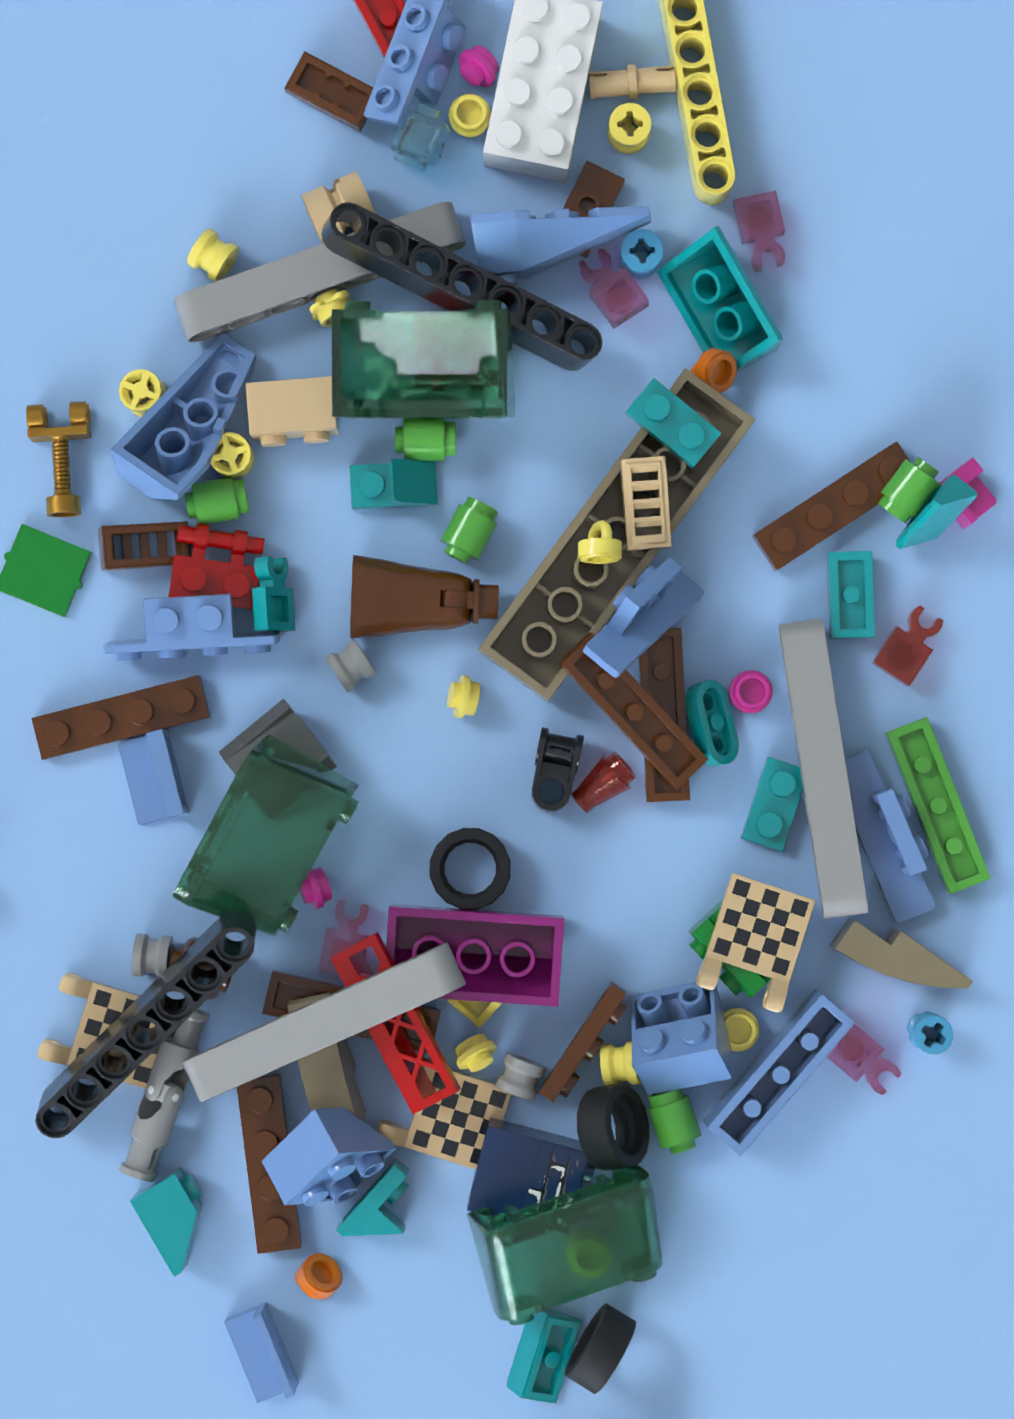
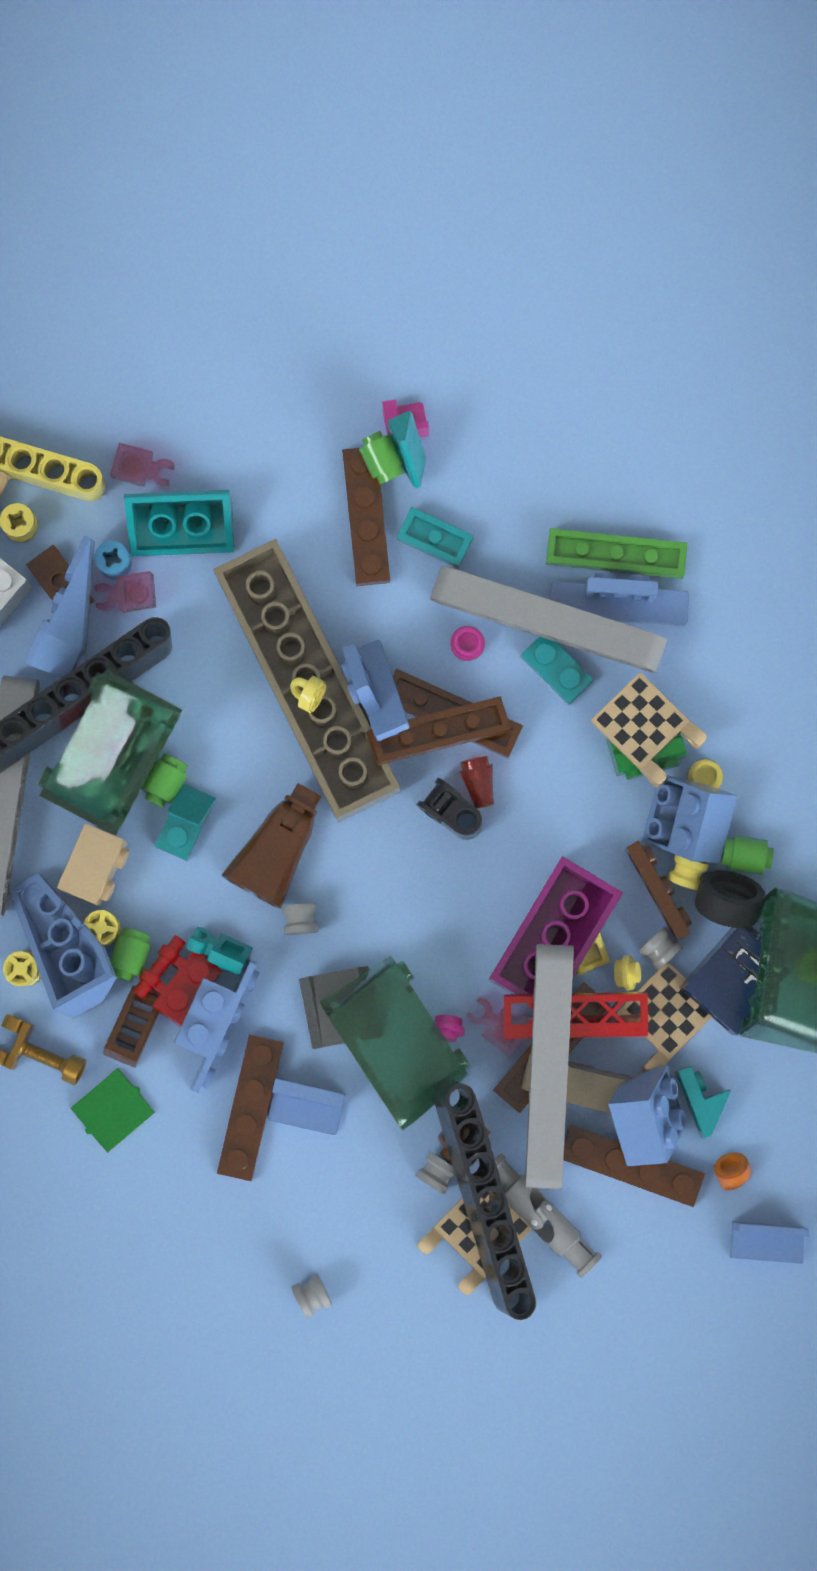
camera: 60 degrees left, 5 degrees down
(171, 1216) = (633, 1256): teal slope -> none
(325, 303) = (31, 801): light yellow plate -> none
(457, 898) = (511, 891): black tyre -> none
(463, 696) = (365, 849): light yellow plate -> none
(469, 530) = (247, 783): bright green brick -> none
(645, 465) = (300, 633): tan slope -> none
(673, 423) = (248, 597): teal plate -> none
(712, 722) = (475, 681): teal plate -> none
(716, 369) = (224, 548): orange tile -> none
(778, 1072) = (749, 761): medium blue brick -> none
(858, 1055) = (766, 700): clear pink plate -> none
(897, 957) = (709, 637): dark tan slope -> none
(905, 652) = (495, 520): clear red plate -> none
(941, 1026) = (775, 630): dark azure bush -> none

